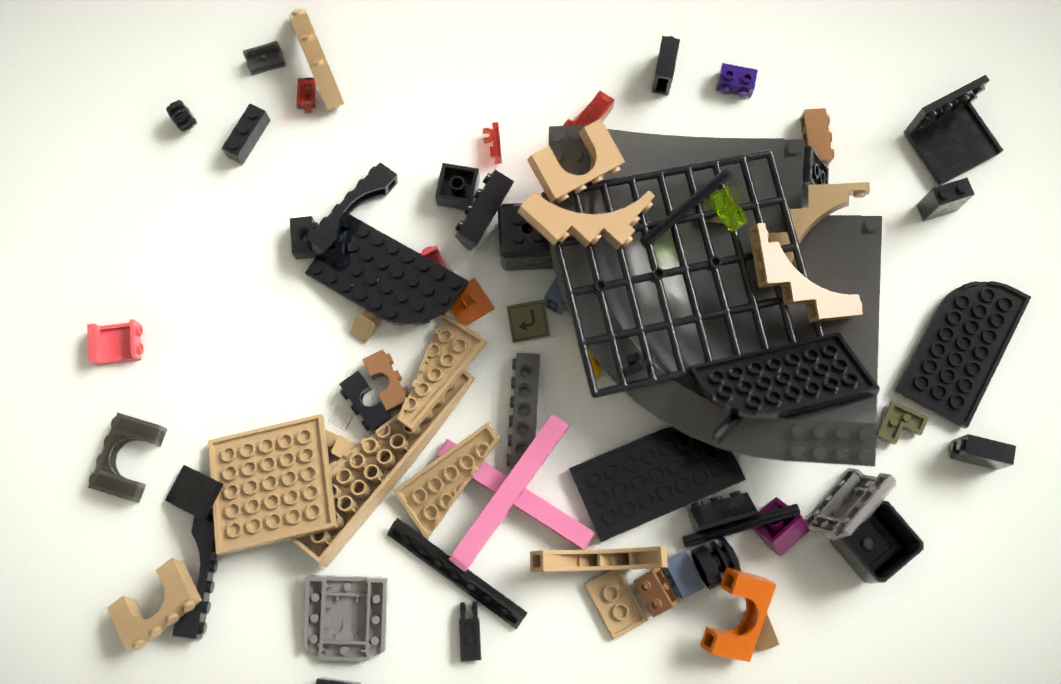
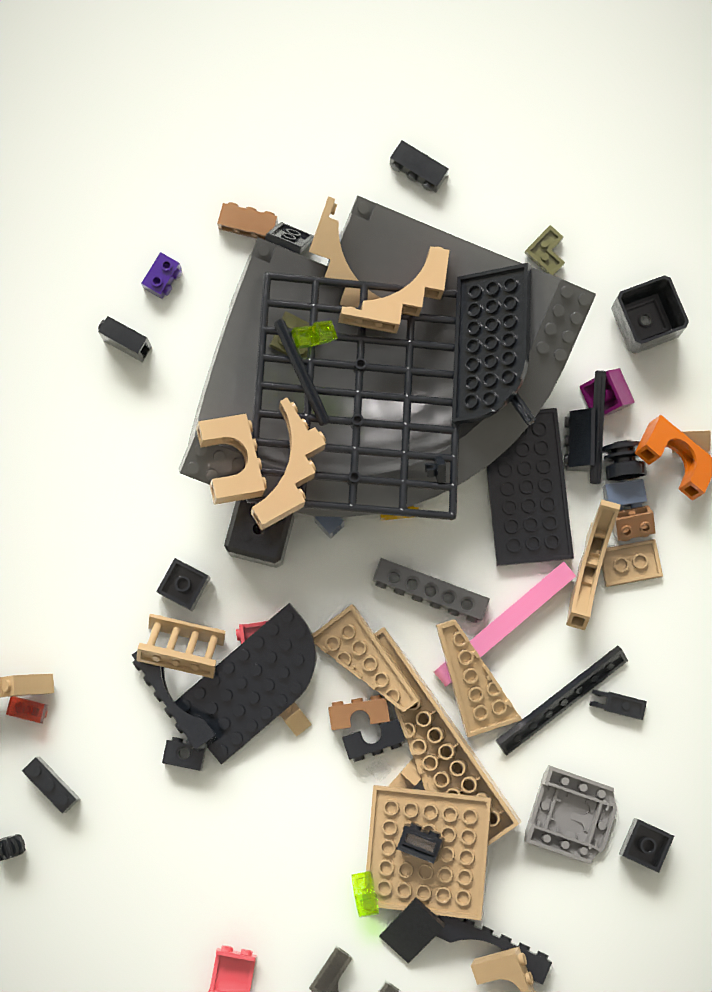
camera: 75 degrees left, 5 degrees up
(215, 437) = (365, 894): none -> clear neon green slope
(274, 472) = (421, 842): none -> black window
(385, 206) = (177, 660): none -> tan fence
(472, 304) = (308, 606): orange piece -> none
(483, 210) = (220, 565): black slope -> none
(495, 150) = (154, 534): clear red plate -> none
(508, 492) = (505, 627): bright pink beam -> none
(528, 321) = (342, 558): olive piece -> none
(597, 109) = (157, 434): clear red arch -> none
(849, 503) = (612, 327): light grey wedge -> none
(934, 274) = (418, 166): none -> black brick
(945, 199) = (353, 129): black brick -> none
(952, 133) = (292, 95): black bracket -> none
(962, 349) = (496, 169): black plate -> none
(982, 452) = (596, 191): black brick -> none

